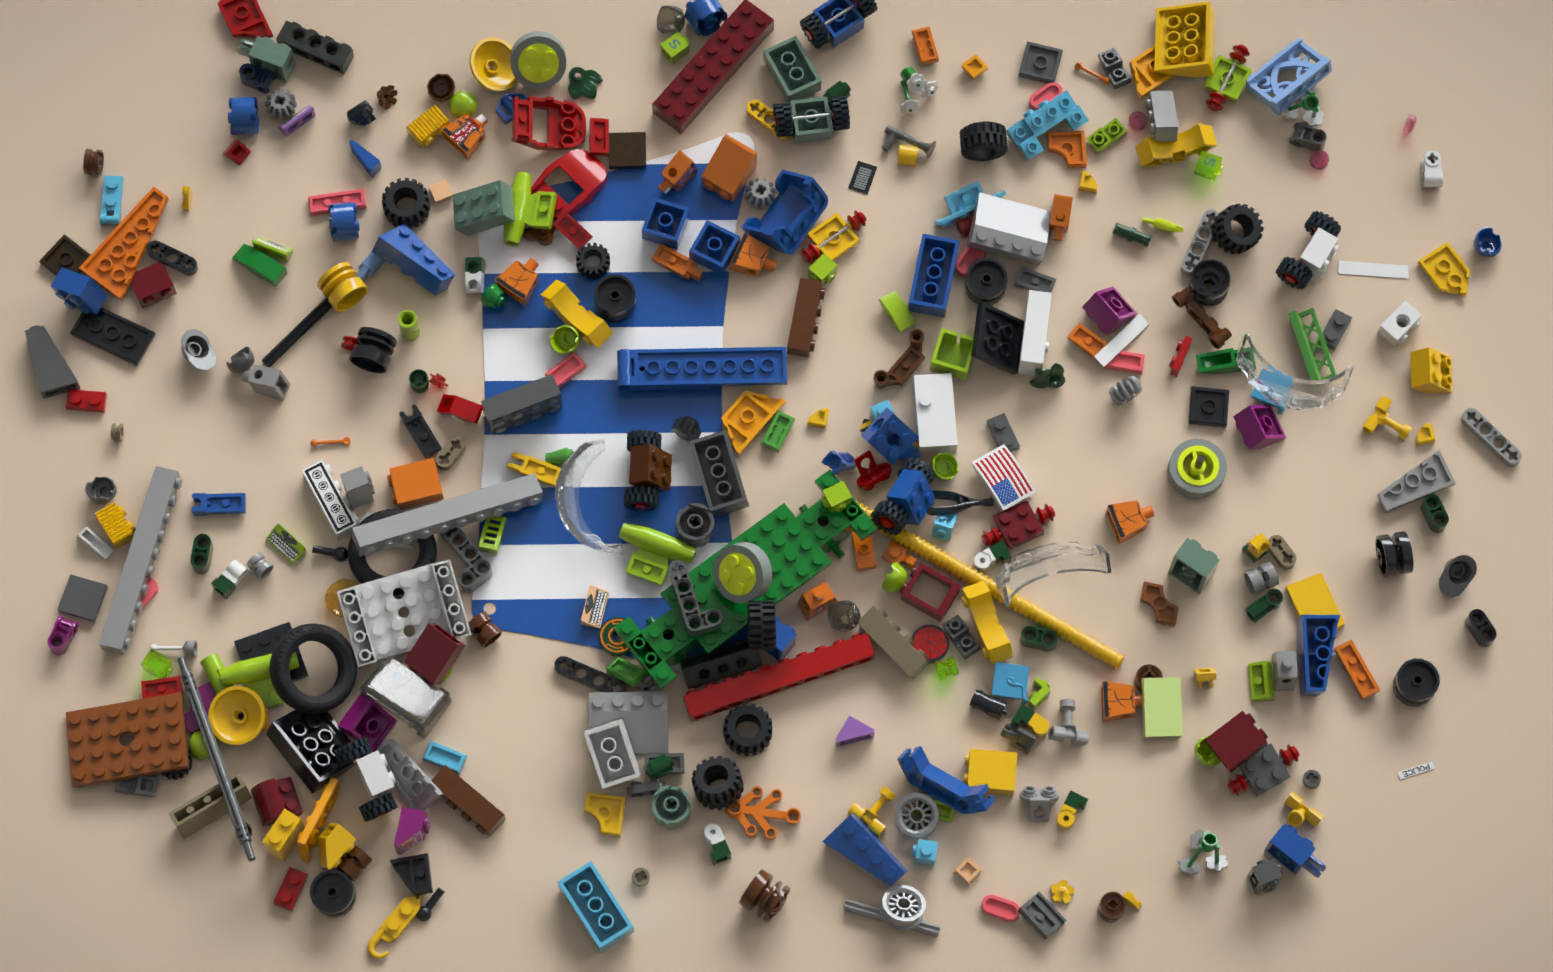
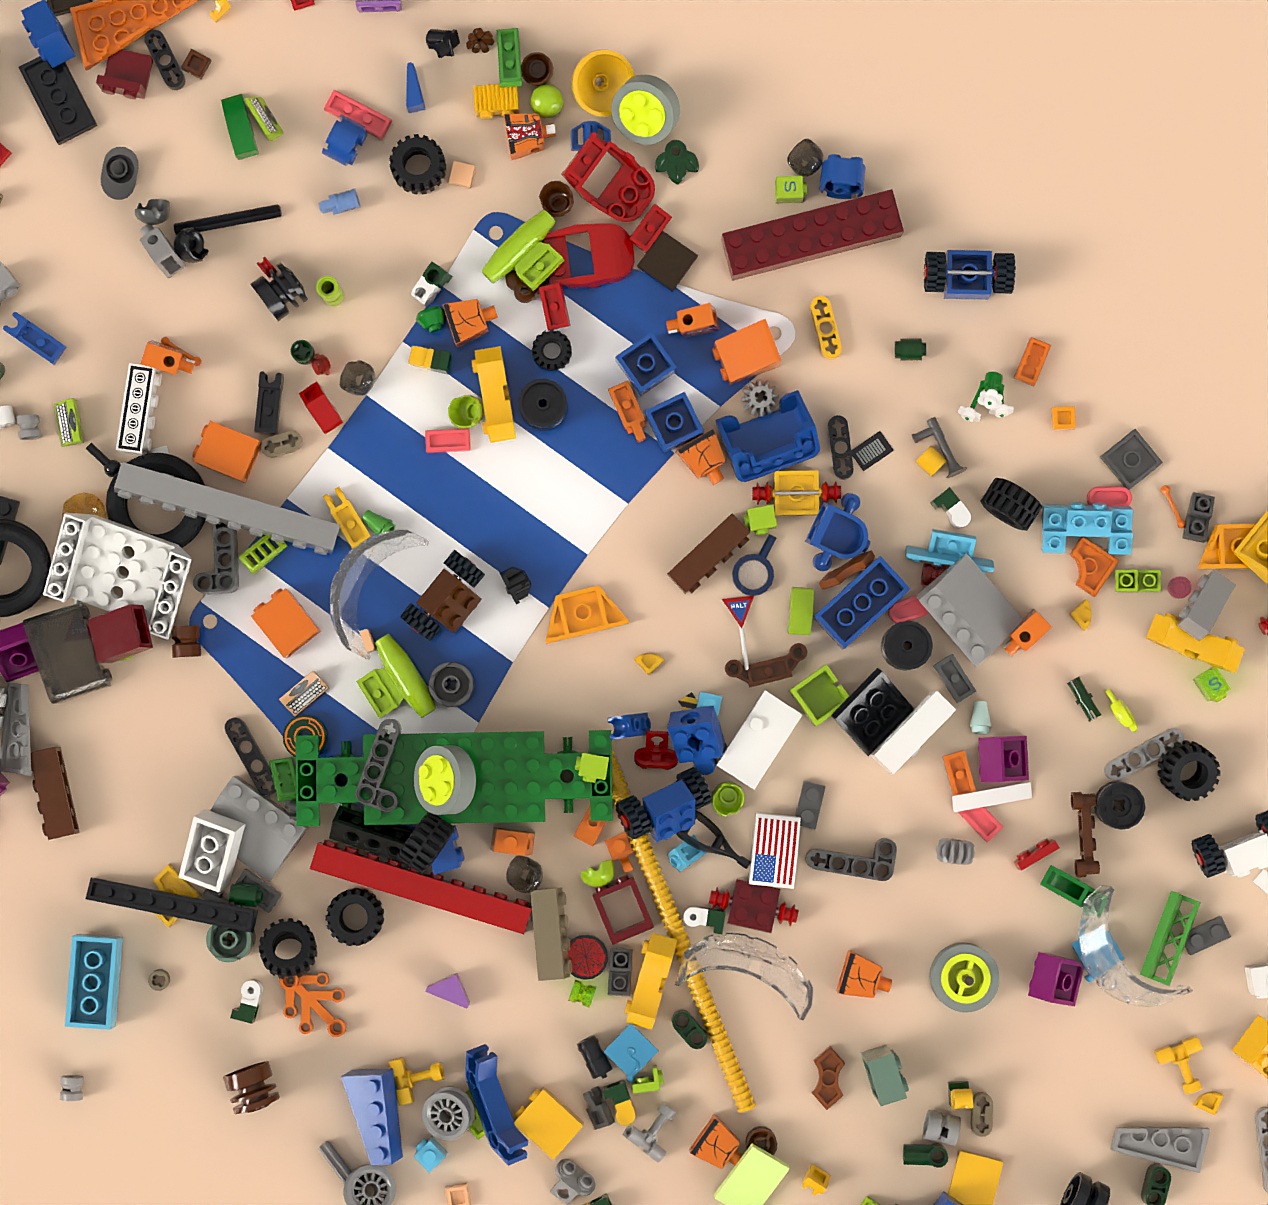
camera: 40 degrees right, 15 degrees up
(196, 246) = (196, 64): none -> reddish brown tile
(285, 364) = (190, 245): none -> black hair
(317, 449) = (157, 355): none -> orange torso
(342, 287) = (296, 207): yellow wheel -> none
(358, 487) = (164, 420): light grey brick -> none
(414, 258) = (384, 226): blue wedge -> none
(416, 92) = (509, 57): none -> bright green tile
(442, 756) = (66, 735): medium azure tile -> none
(471, 370) = (357, 378): none -> clear smoke hair
(483, 207) = (484, 223): sand green brick -> none
(512, 324) = (430, 359): none -> leg
(520, 159) = (556, 198): none -> reddish brown hair
(522, 404) = (377, 447): dark grey brick -> none
(545, 568) = (285, 622): none -> orange brick
(611, 812) = (172, 905): none -> black tile
(612, 538) = (368, 640): none -> light nougat tile
(700, 368) = (573, 534): blue hinge -> none
(719, 473) = (512, 650): dark grey brick -> none
(778, 431) = (600, 647): bright green plate -> none
(792, 70) = (883, 295): sand green brick -> none
(810, 118) = (863, 358): brick -> none
(845, 310) = (753, 572): none -> piece
(853, 193) = (832, 432): none -> black beam
(854, 340) = (739, 609): none -> piece
(882, 242) = (838, 532): none -> blue piece
(908, 259) = (851, 567): none -> dark orange tile
(946, 173) = (953, 508): none -> leg
(1049, 377) = (898, 788): dark green plate -> none
(1059, 449) = (850, 860): none -> dark grey beam
(1073, 295) = (980, 718): none -> light aqua cone
(1208, 406) = (1024, 922): black tile -> none

